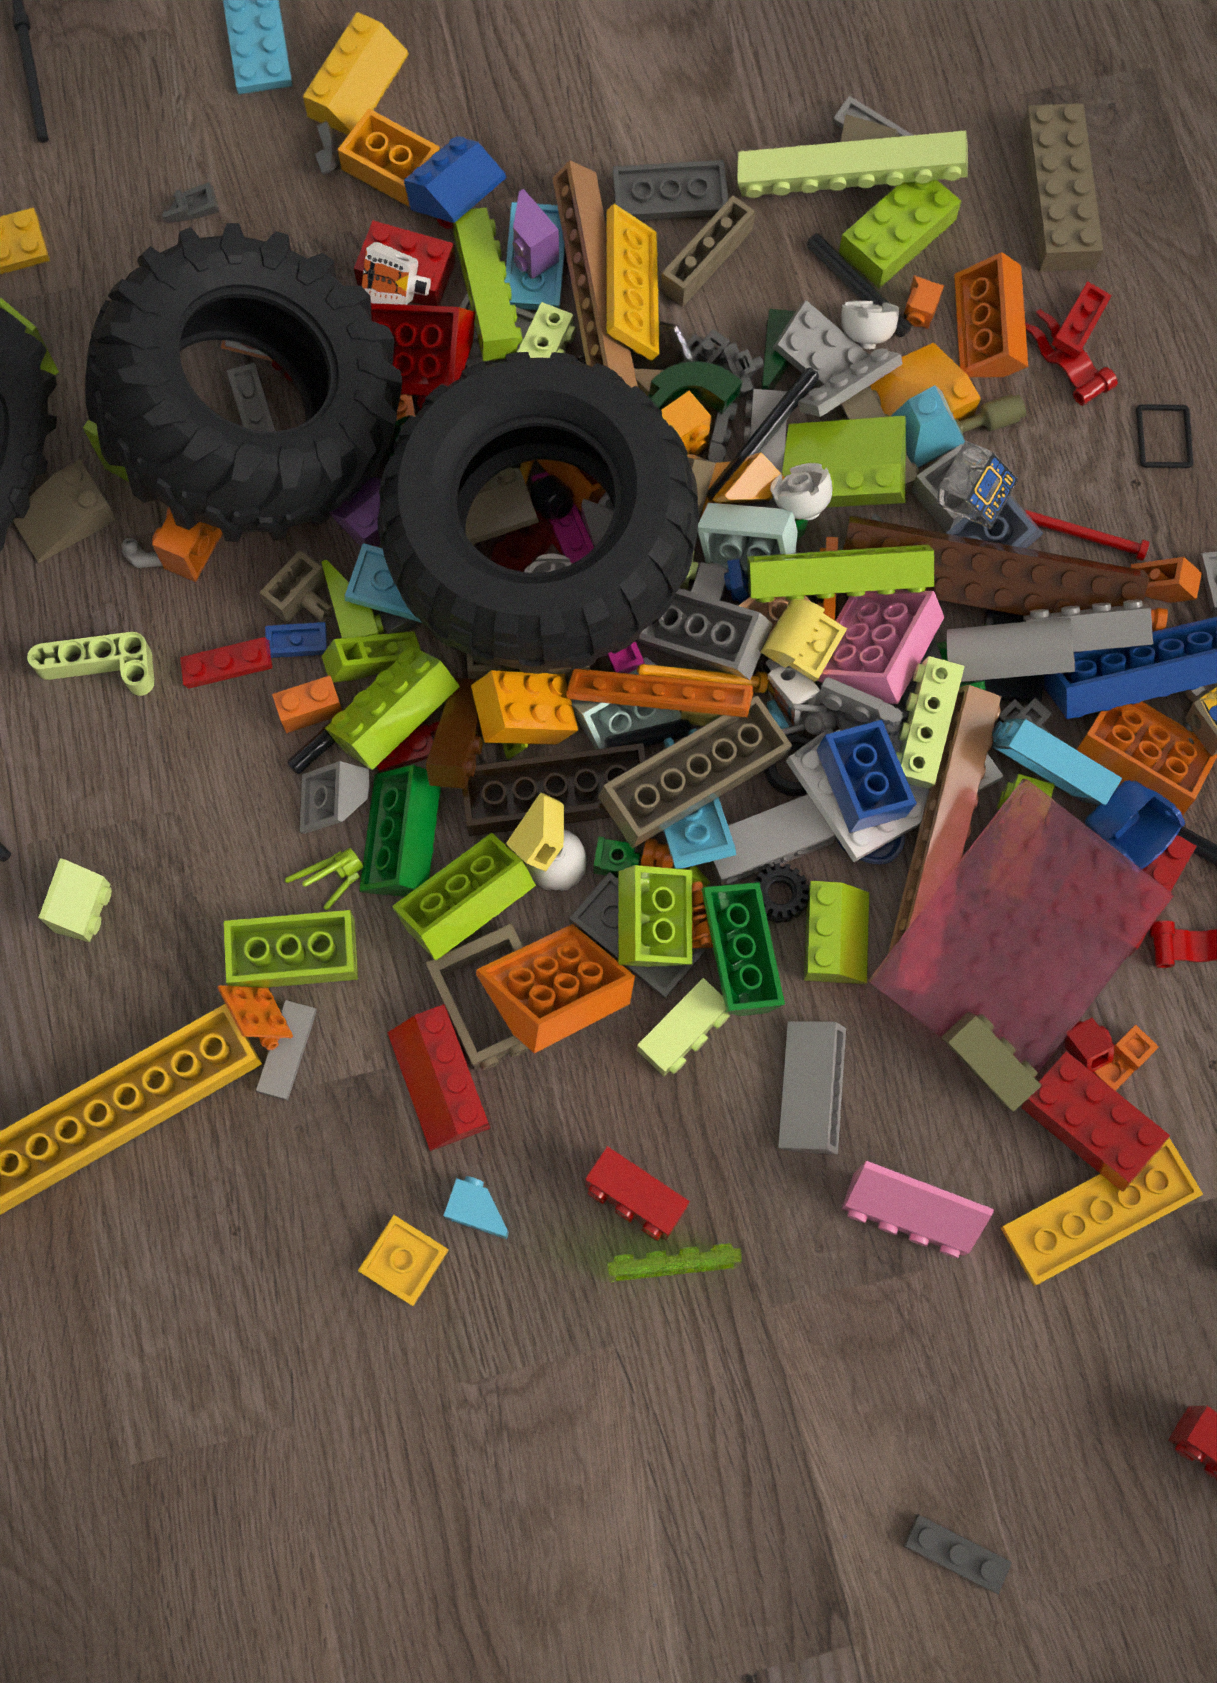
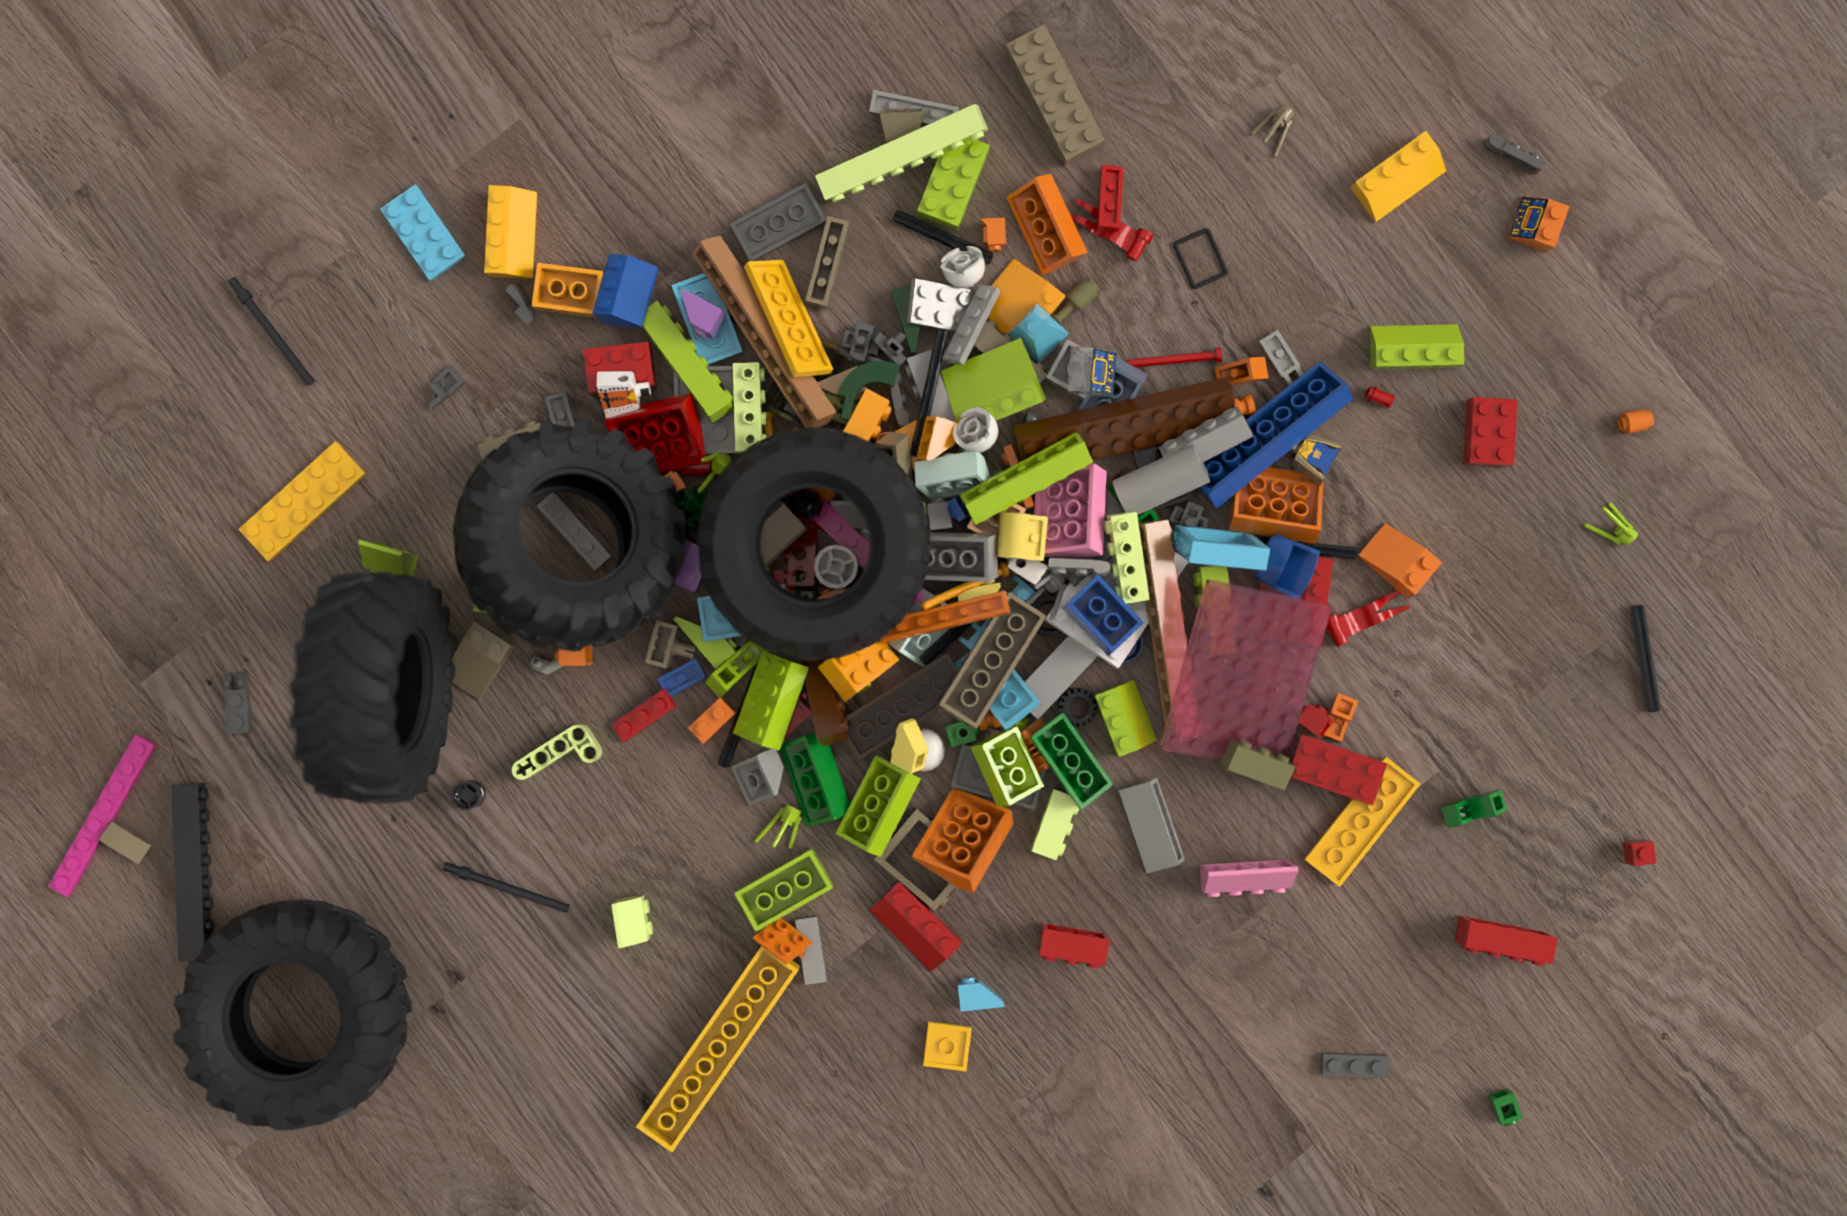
camera: 25 degrees left, 15 degrees up
(687, 1261) = (1105, 981): clear neon green plate -> none

